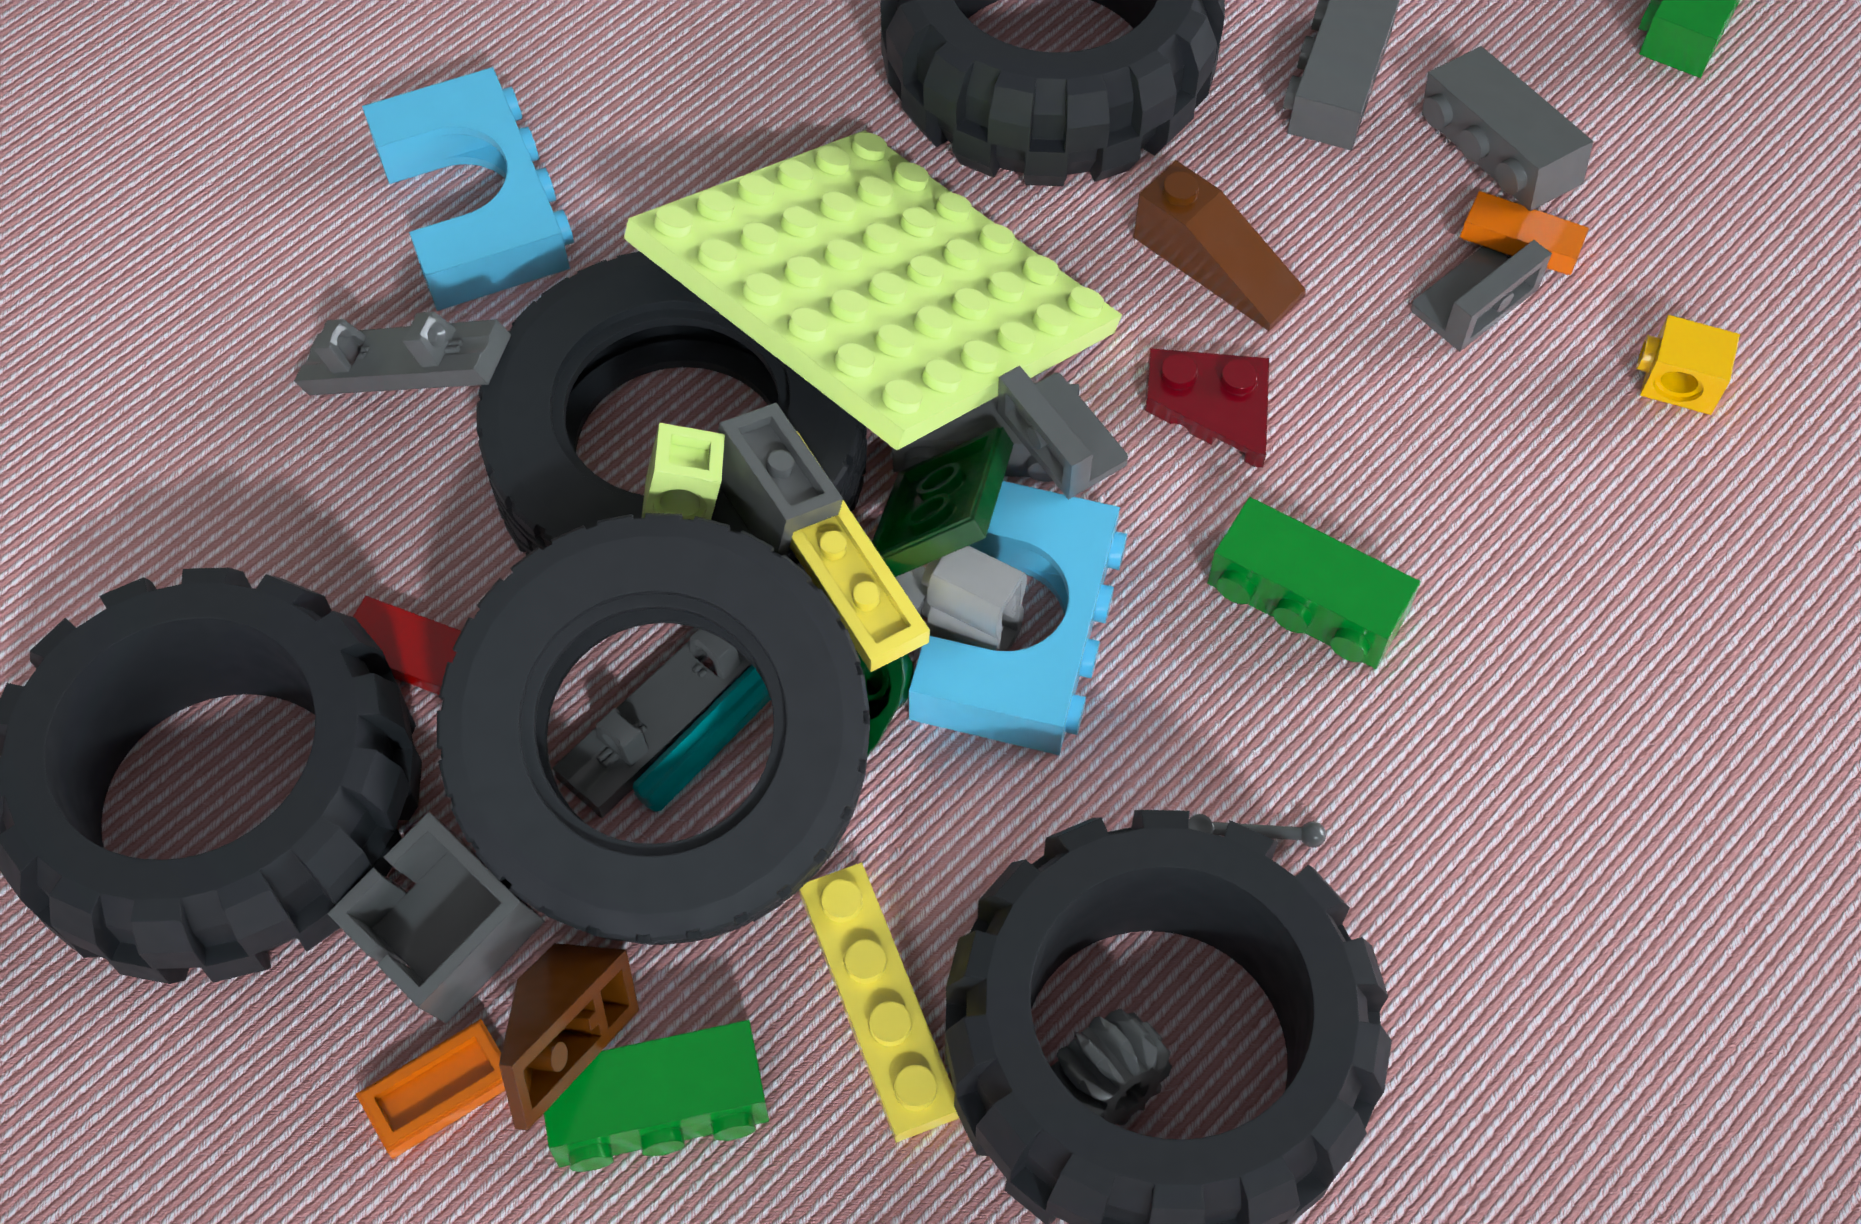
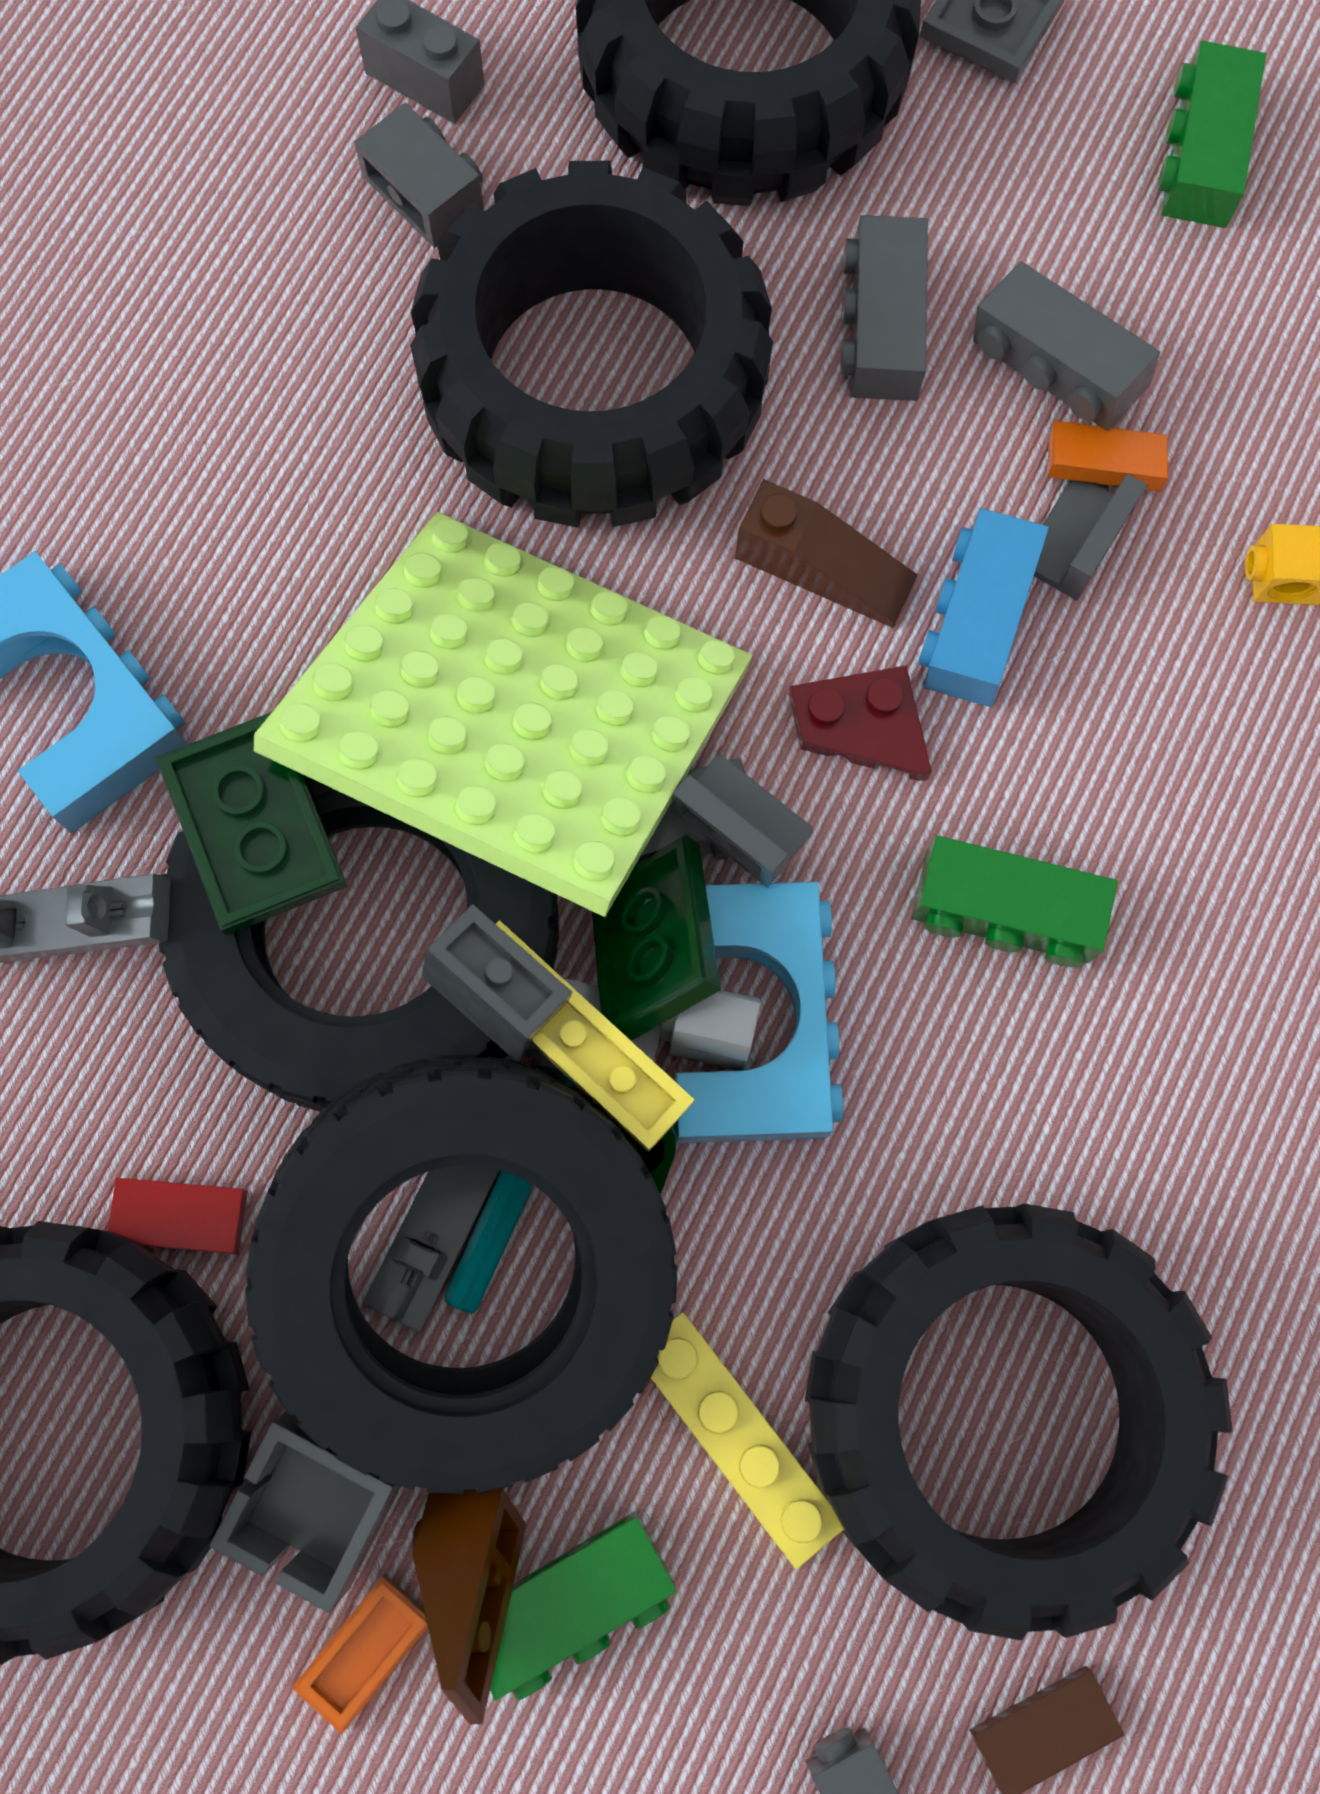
camera: 20 degrees left, 15 degrees up
(598, 310) = (249, 828): none -> dark green tile
(684, 472) = (407, 1012): yellowish green brick -> none
(1114, 1065) = (975, 1465): dark grey gear -> none
(1311, 833) = (977, 1176): dark grey hinge -> none
(1360, 326) = (982, 606): none -> dark azure brick

